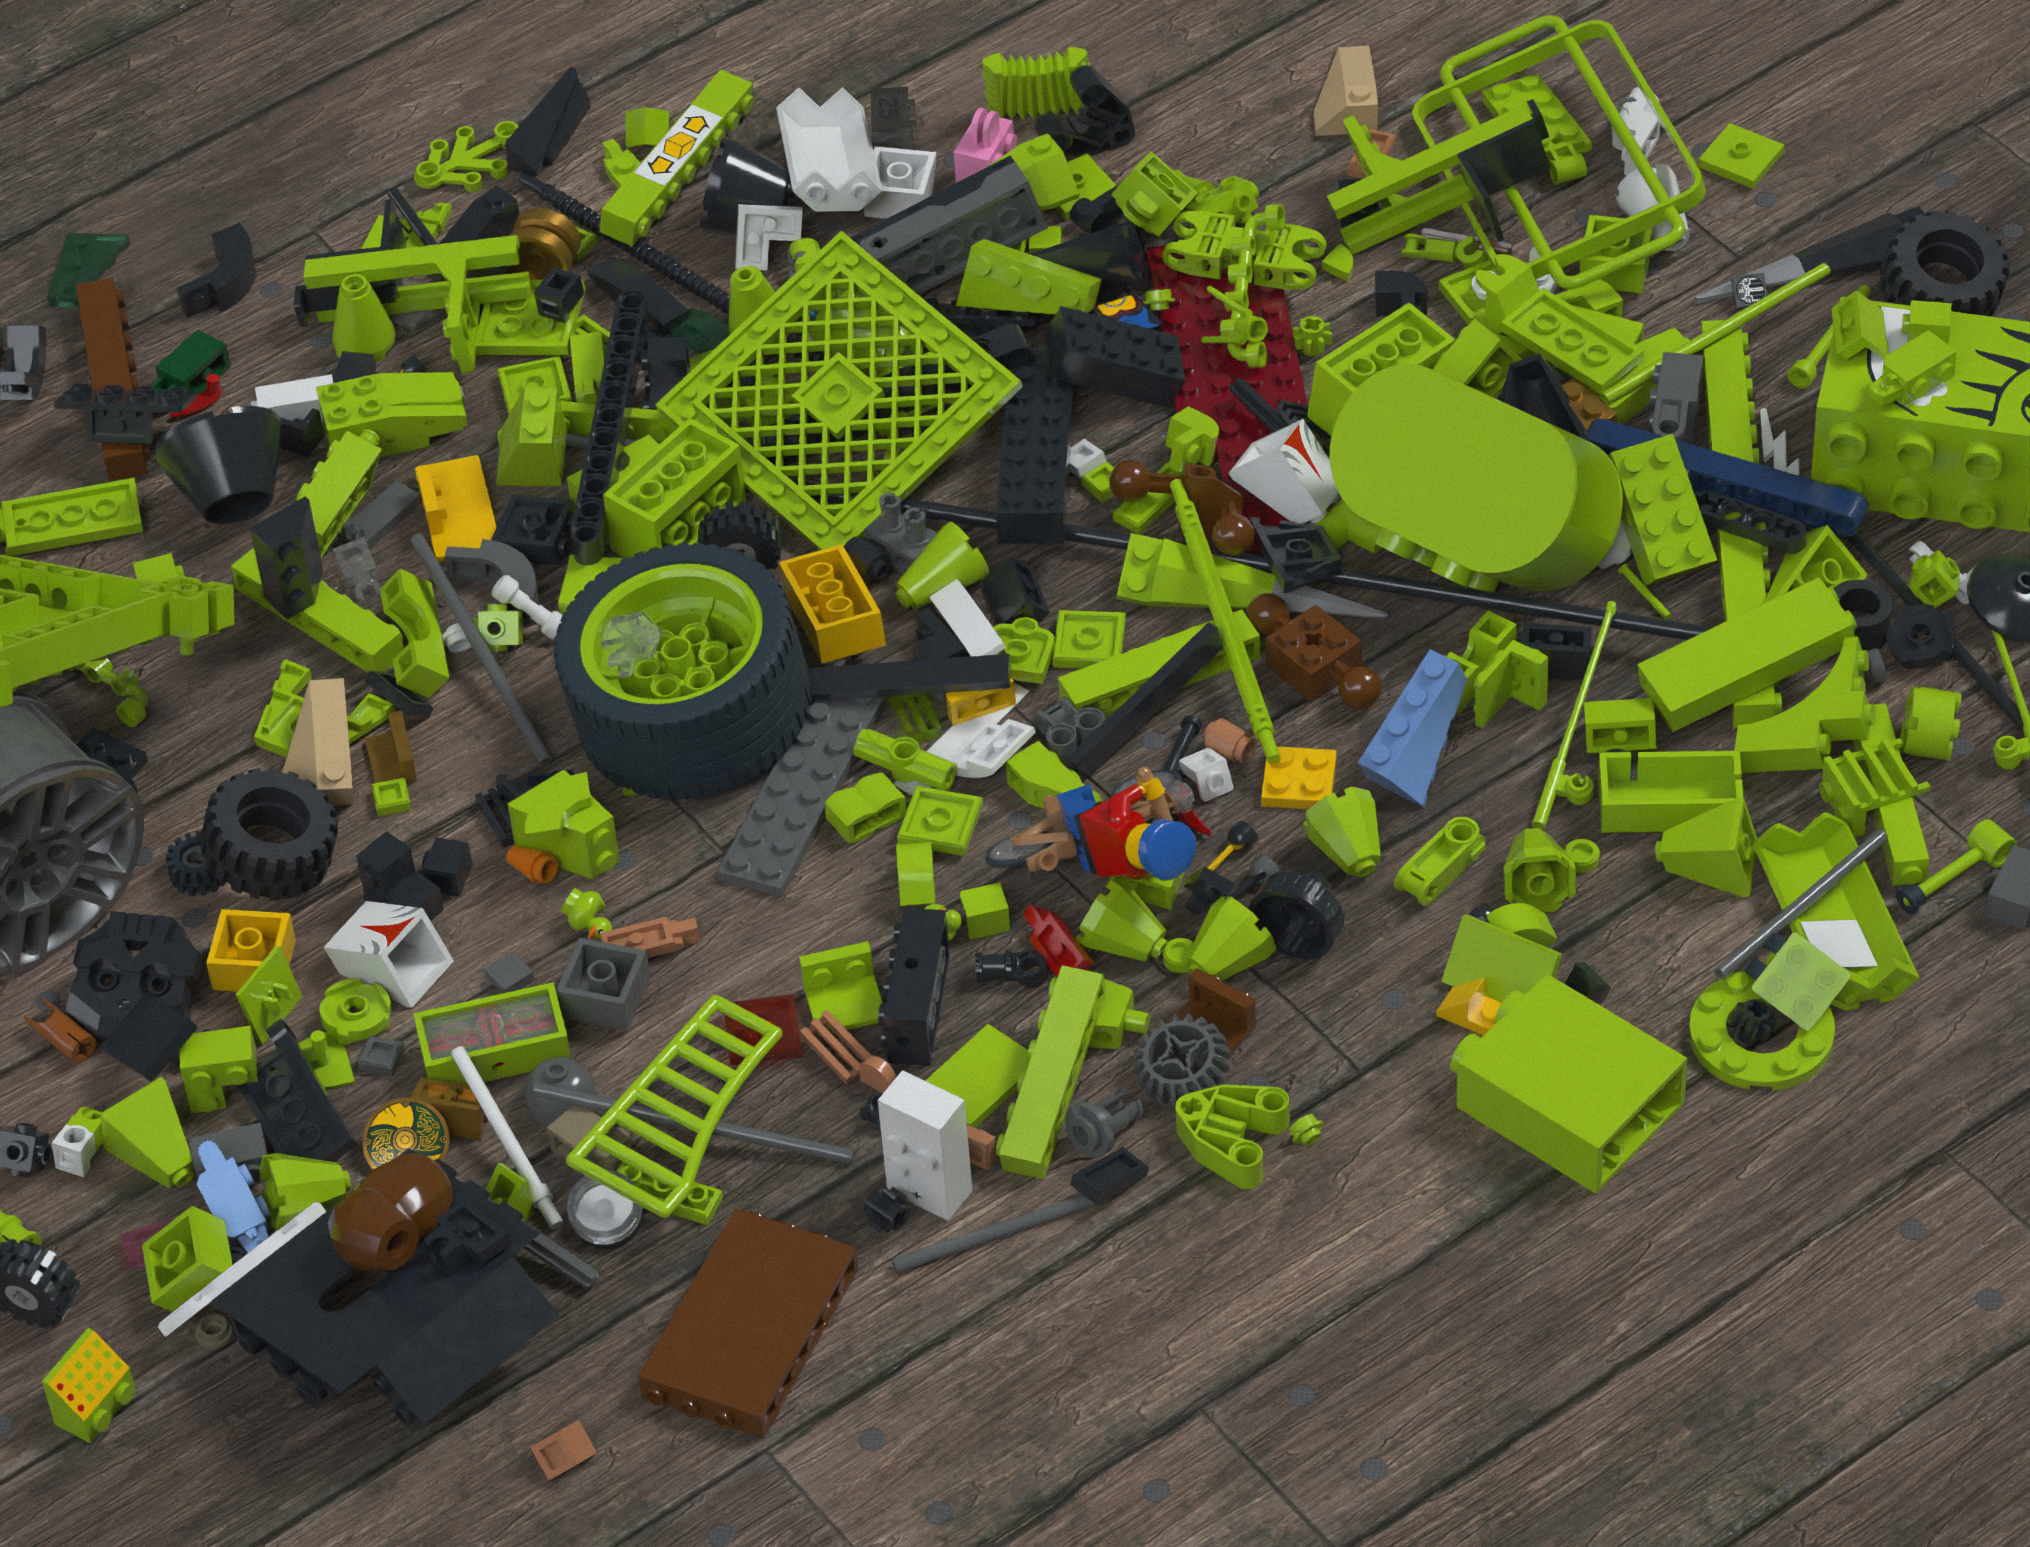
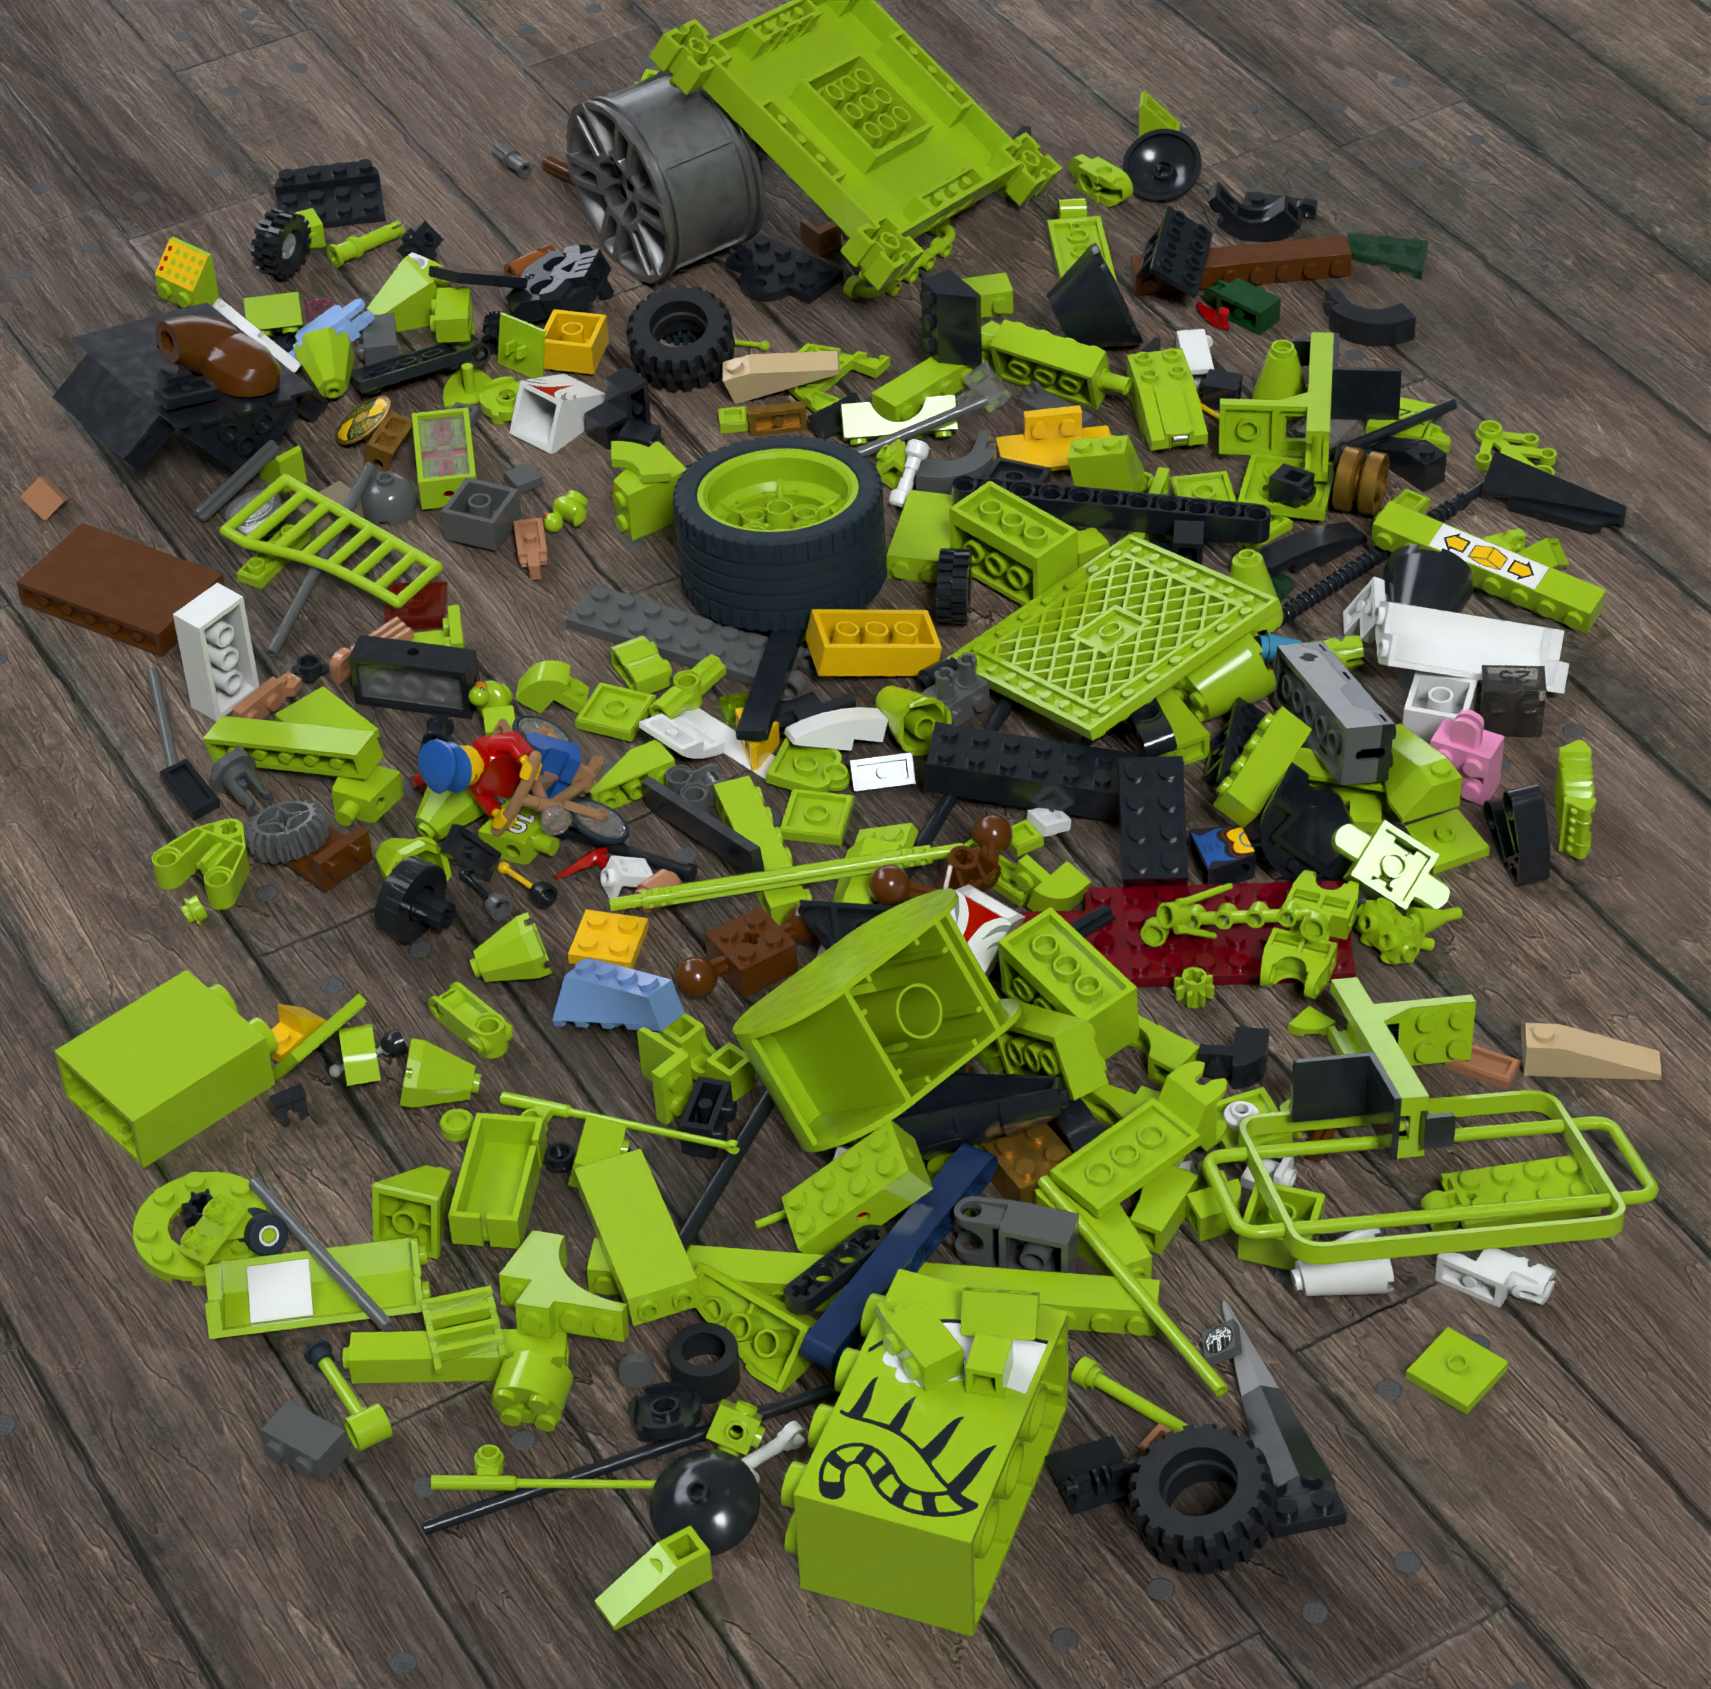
camera: 95 degrees right, 5 degrees down
(540, 1193) = (352, 455): white bar -> none
(630, 640) = (795, 484): clear brick -> none
(1158, 299) = (1246, 869): lime plate -> none

